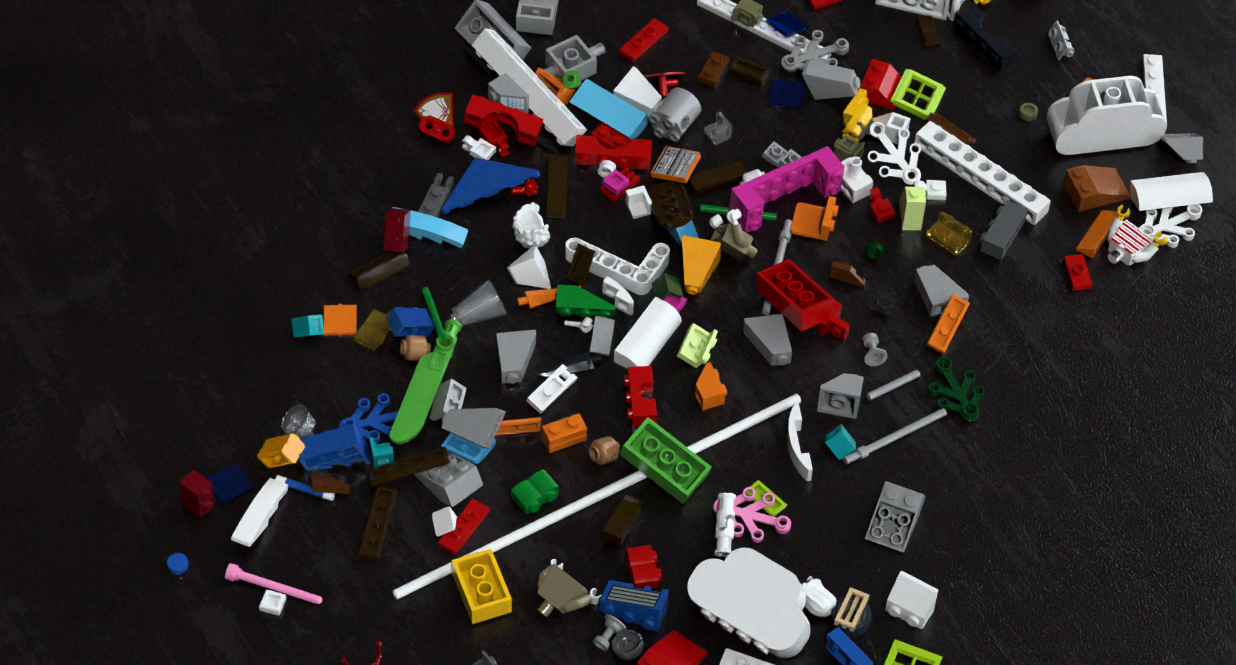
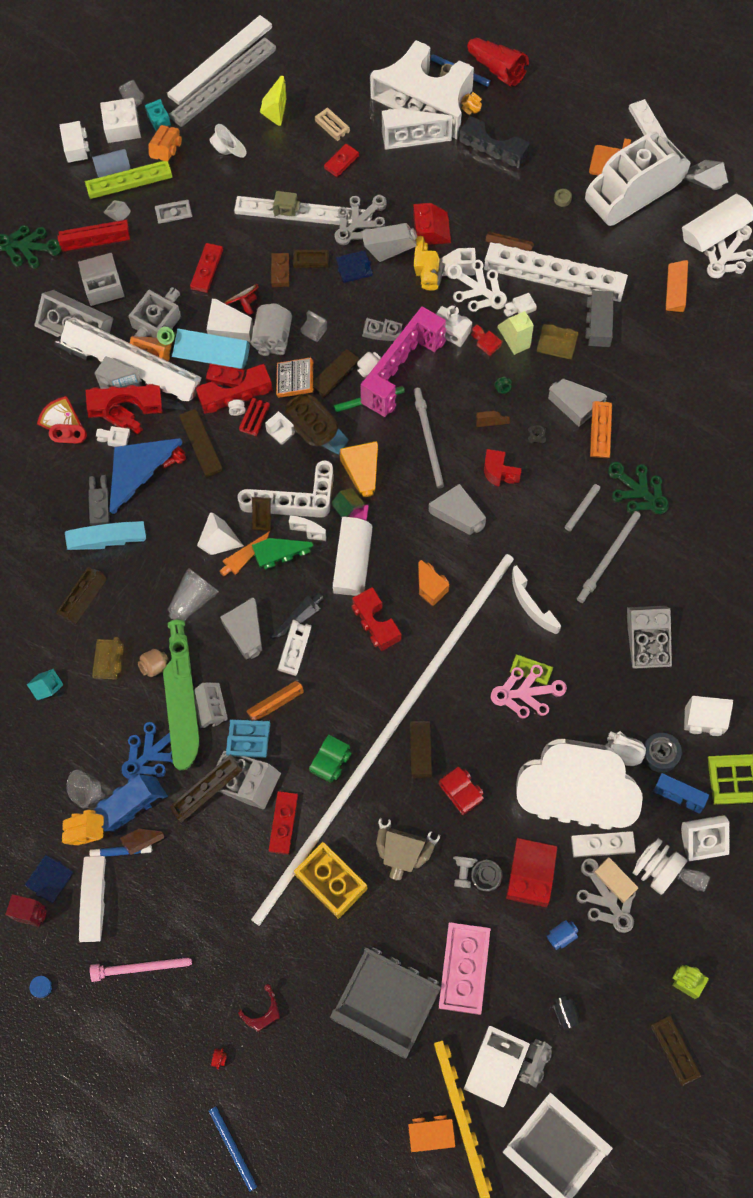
camera: 20 degrees left, 15 degrees up
(272, 602) = (147, 984): white tile -> none
(340, 320) = (70, 663): orange piece -> none
(377, 524) = (204, 856): dark brown tile -> none
(381, 453) = (173, 783): teal panel -> none
(397, 230) = (81, 553): dark red brick -> none
(410, 322) = (137, 640): blue brick -> none
(433, 313) = (153, 621): green bar -> none
(444, 521) = (264, 828): white slope -> none
(475, 424) = (245, 721): light grey slope -> none
(529, 227) = (199, 497): white hair -> none
(564, 433) = (327, 688): orange brick -> none
(585, 325) = (292, 570): white hand -> none
(601, 336) = (312, 574): light grey slope -> none
(604, 450) = (370, 688): medium nougat head -> none
(615, 182) = (251, 418): dark pink plate -> none
(635, 604) = (473, 833): blue wedge -> none
(665, 460) = (432, 677): bright green brick -> none
(697, 345) = (400, 546): yellowish green bracket -> none
(725, 524) = (511, 711): white piece -> none
(732, 238) = (378, 430): dark tan torso -> none
(787, 24) = (322, 200): clear blue piece -> none
(795, 295) = (464, 462): red brick -> none
(814, 220) = (439, 378): orange bracket -> none
(840, 442) = (567, 585): teal panel -> none
(841, 395) = (551, 541): light grey slope -> none
(845, 623) = (663, 765): tan tile -> none
(848, 148) = (433, 298): olive window -> none
(875, 355) = (555, 486): light grey piece -> none
(903, 87) = (450, 225): lime piece -> none
(927, 31) = (442, 157): dark brown tile -> none
(1059, 41) = (555, 121): light grey hinge -> none
(1077, 272) = (679, 331): red plate -> none
(1094, 186) = (652, 245): dark orange slope -> none
(1129, 242) = (709, 285): white torso -> none

